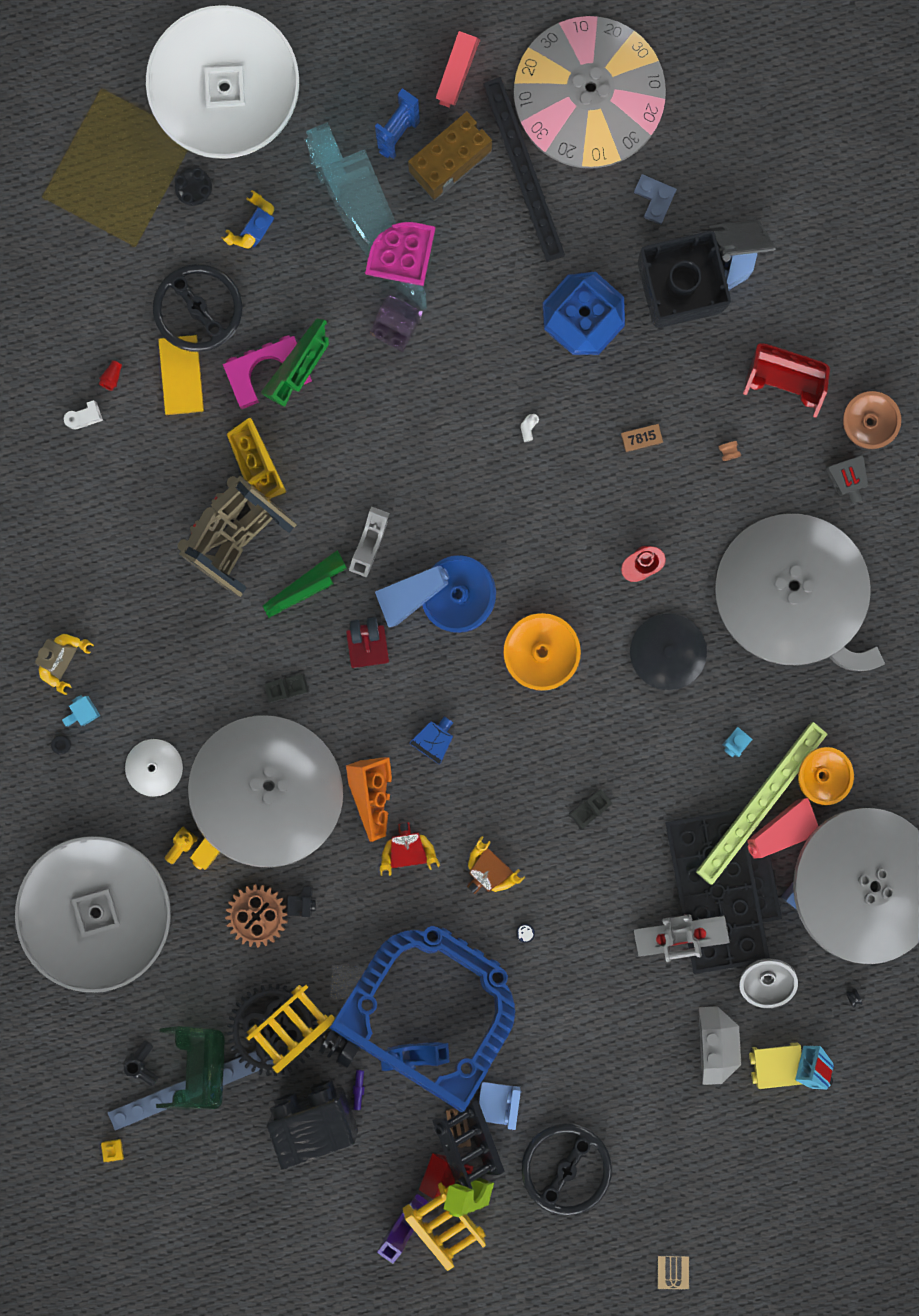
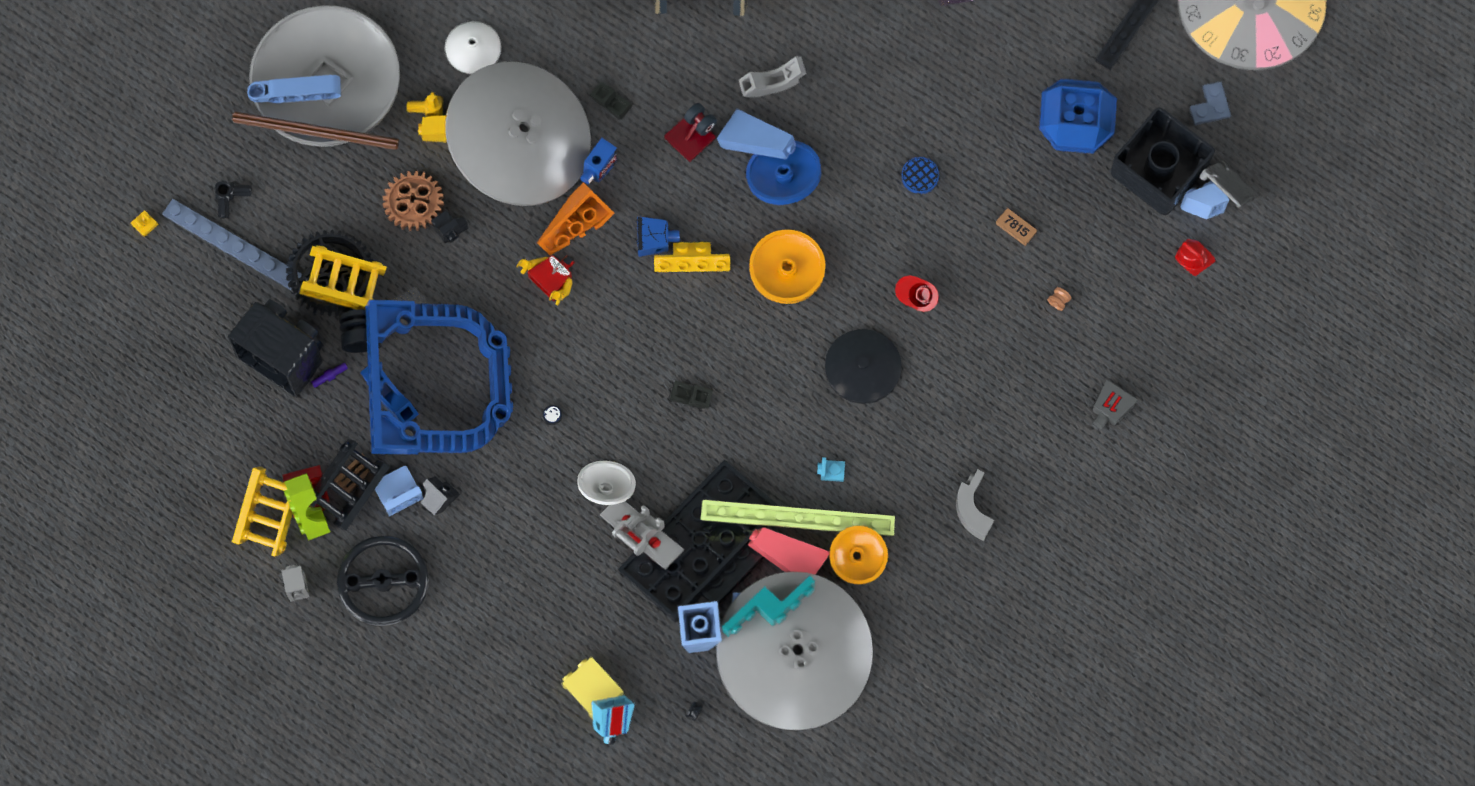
camera: 50 degrees right, 15 degrees down
(90, 950) = (295, 89): none -> medium blue piece
(139, 958) = (315, 130): none -> reddish brown axle
(203, 1068) = (263, 243): clear green windscreen -> none
(307, 585) = (703, 61): green wedge -> none
(336, 734) = (599, 162): none -> blue torso
(399, 1233) = (235, 485): dark purple arch -> none
(474, 721) = (692, 258): none -> yellow bracket
(489, 870) = (582, 348): torso -> none
(520, 1244) = (295, 583): none -> light grey brick
(527, 425) = (956, 135): white arm -> none
(528, 1075) = (438, 495): none -> brick
(540, 482) = (920, 175): none -> tile
(610, 926) = (606, 482): none -> white dish
(673, 1272) = (358, 729): piece -> none
(718, 1045) = (572, 630): light grey wedge -> none
(770, 990) = (645, 633): light grey dish -> none
(772, 313) = (1194, 256): none -> red piece
(786, 623) = (982, 453): light grey dish -> none
(789, 372) = (1155, 295): red windscreen -> none
(797, 950) = (699, 626): none -> light blue slope
(829, 887) = (769, 607): none -> teal bracket
(881, 411) = (1174, 376): nougat dish -> none

